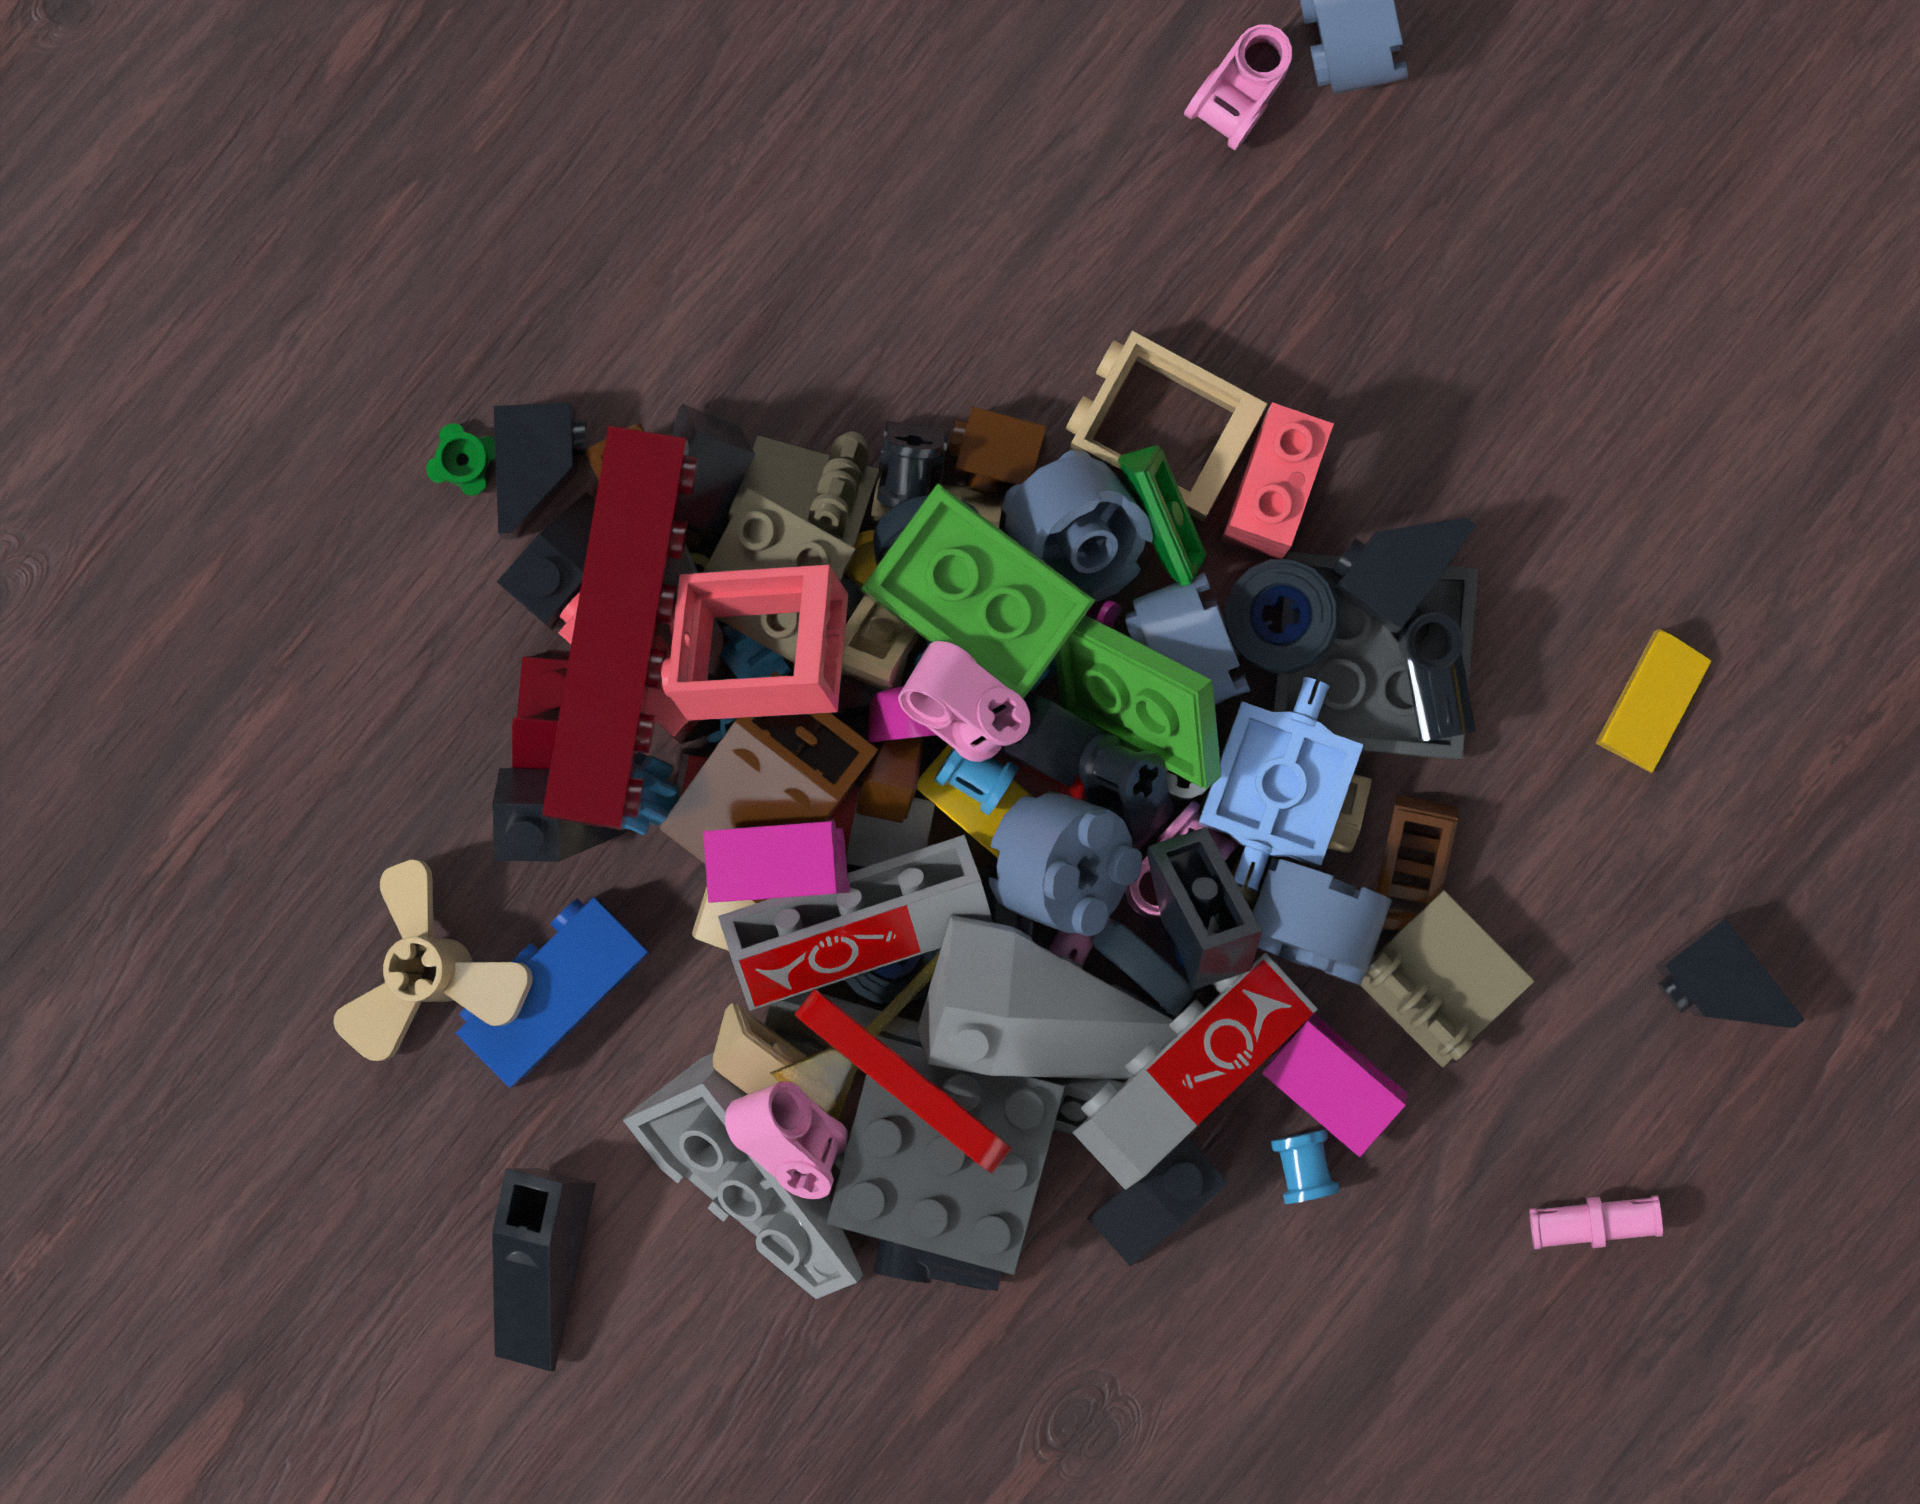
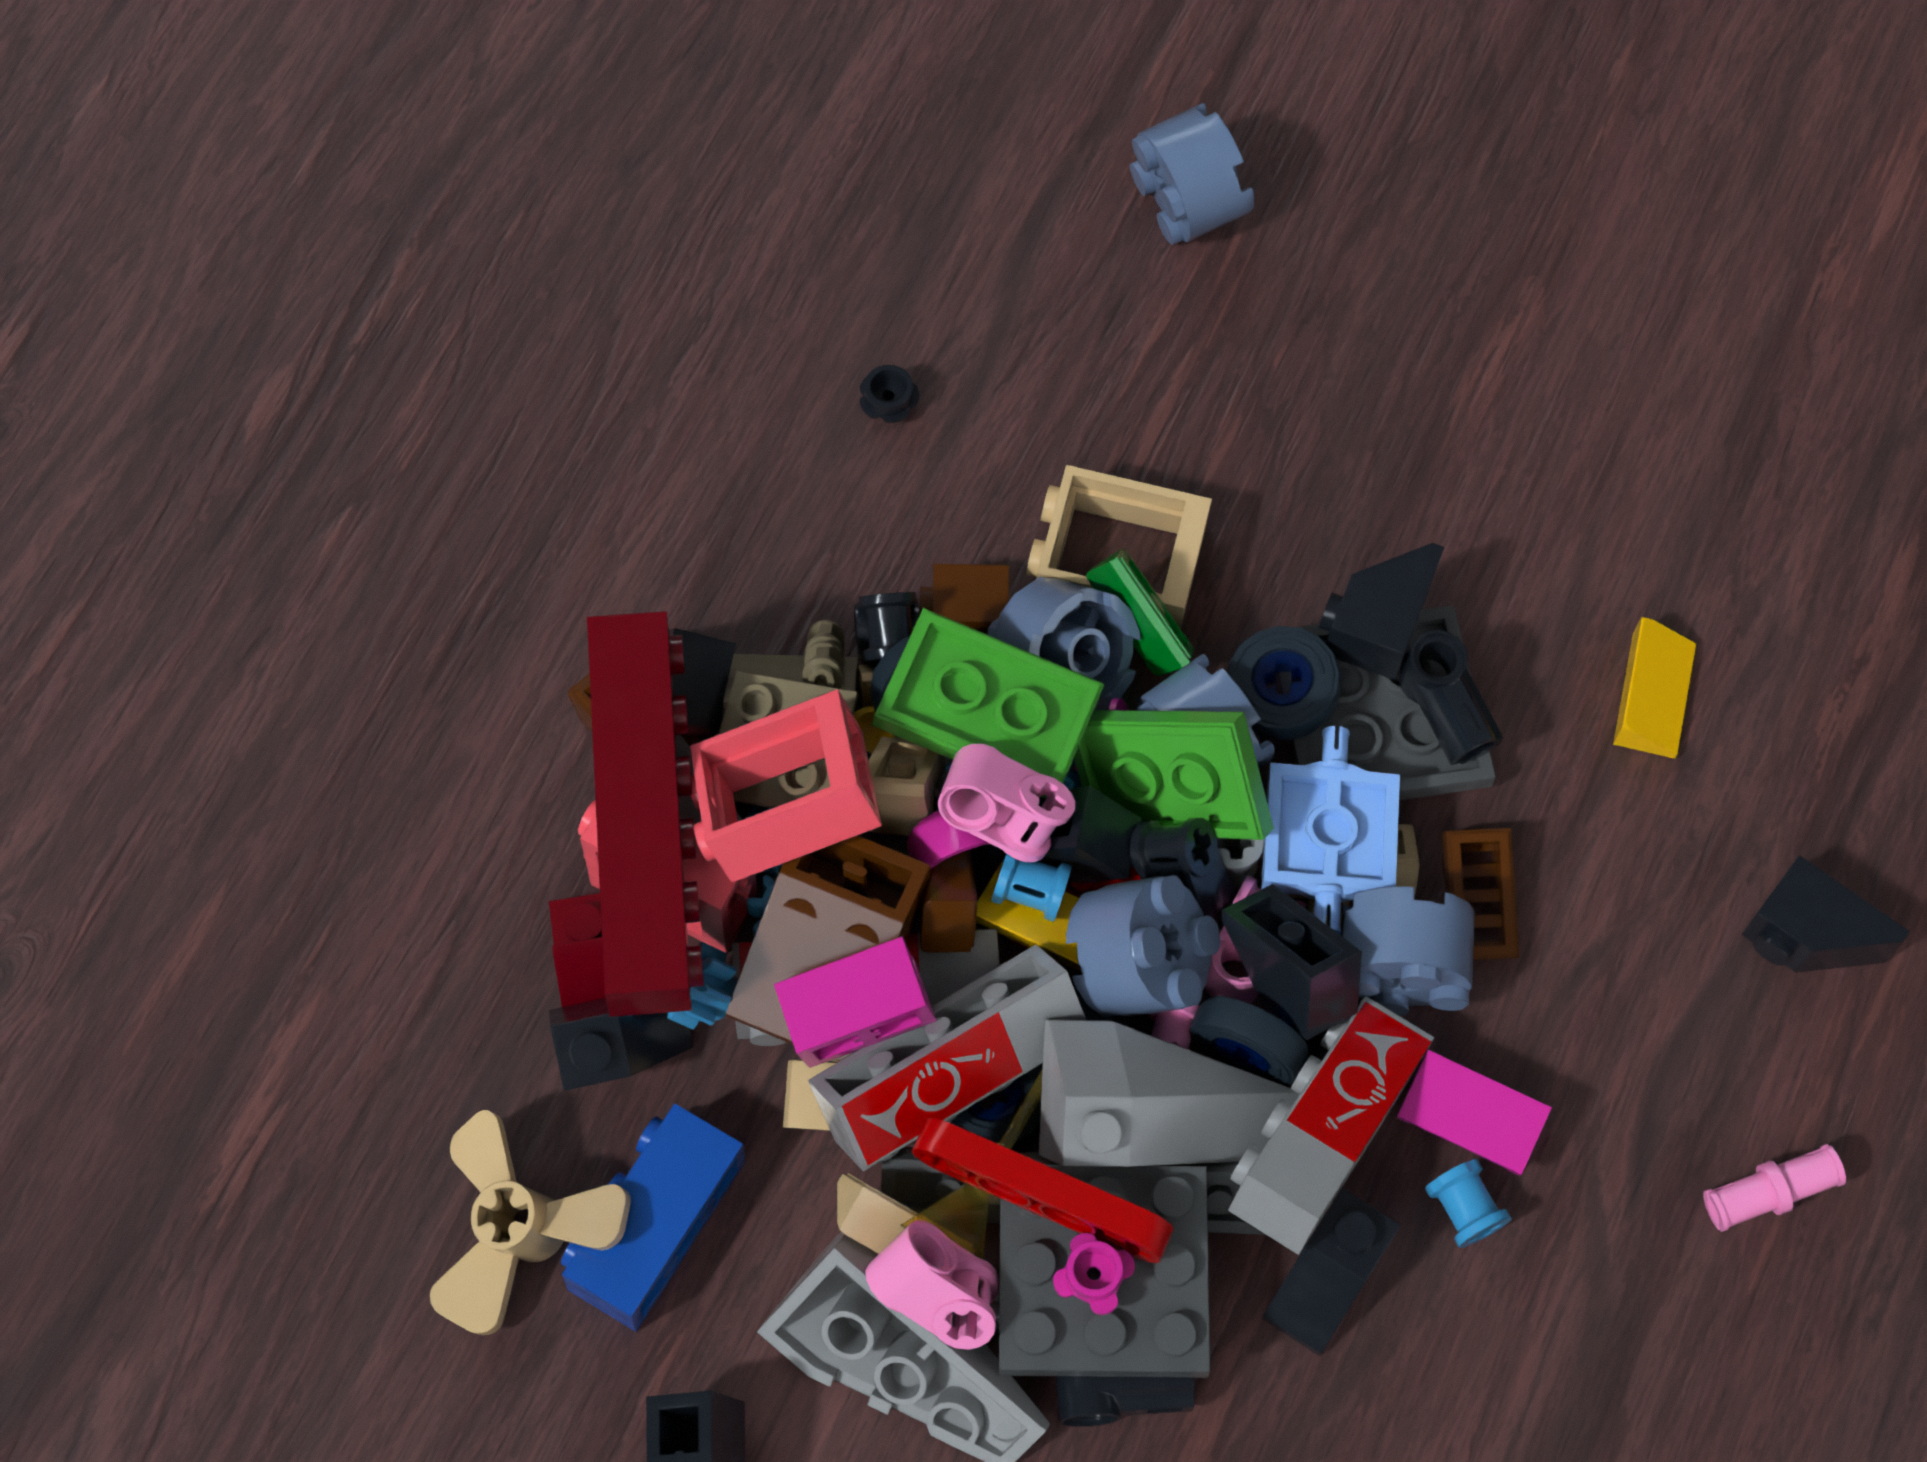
camera: 15 degrees left, 20 degrees down
(445, 466) = (445, 718): green plate -> none
(534, 459) = (520, 714): black slope -> none
(553, 564) = (552, 809): black slope -> none
(911, 1166) = (1088, 1254): none -> dark pink plate
(980, 175) = (888, 380): none -> black plate
(1240, 87) = (1104, 257): bright pink piece -> none
(1277, 481) = (1242, 557): coral window -> none
(1444, 979) = (1546, 988): dark tan hinge -> none

